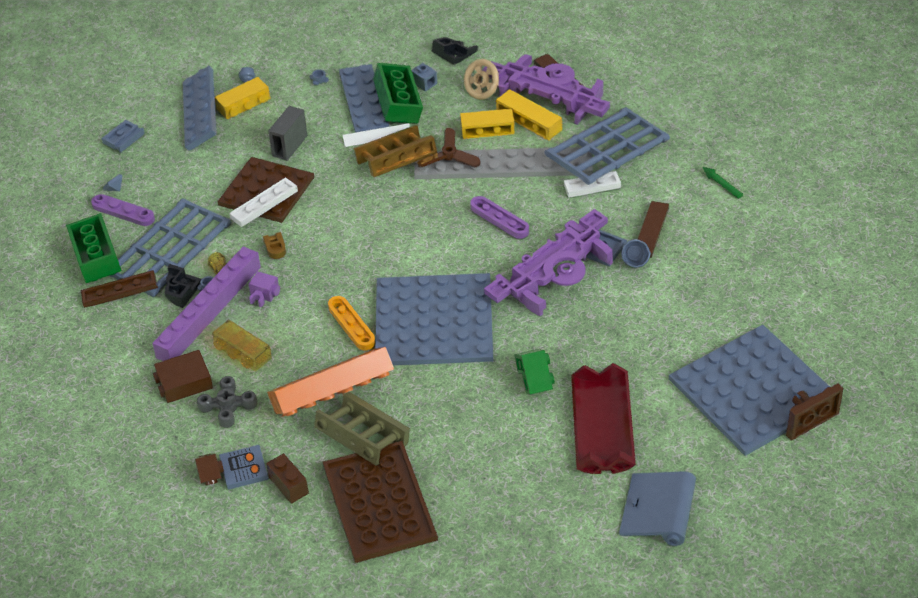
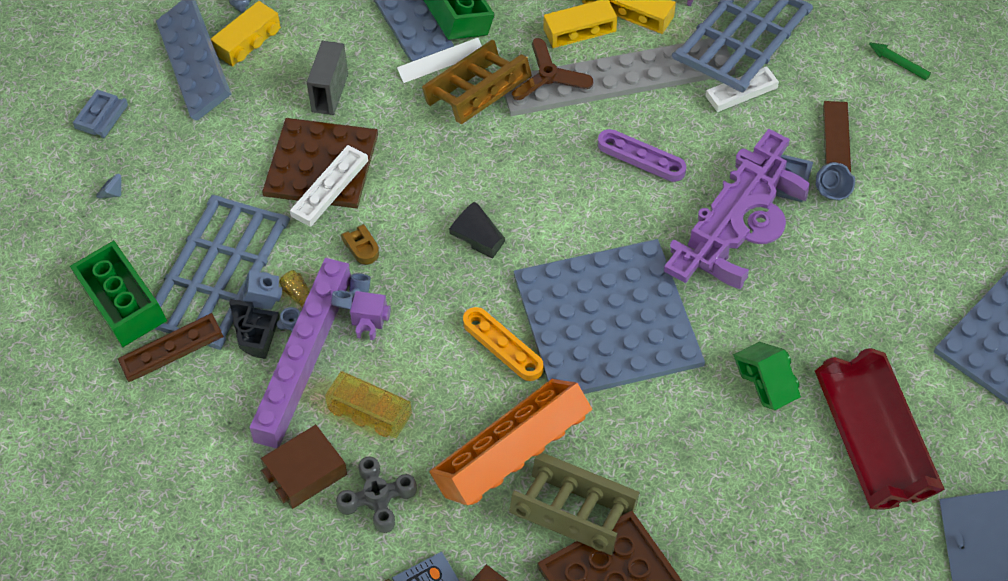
camera: 15 degrees left, 10 degrees up
(123, 210) = (135, 224): medium lavender plate -> none
(193, 261) = (261, 289): none -> sand blue brick
(247, 275) = (344, 299): none -> sand blue bar
(361, 248) = (478, 230): none -> black slope

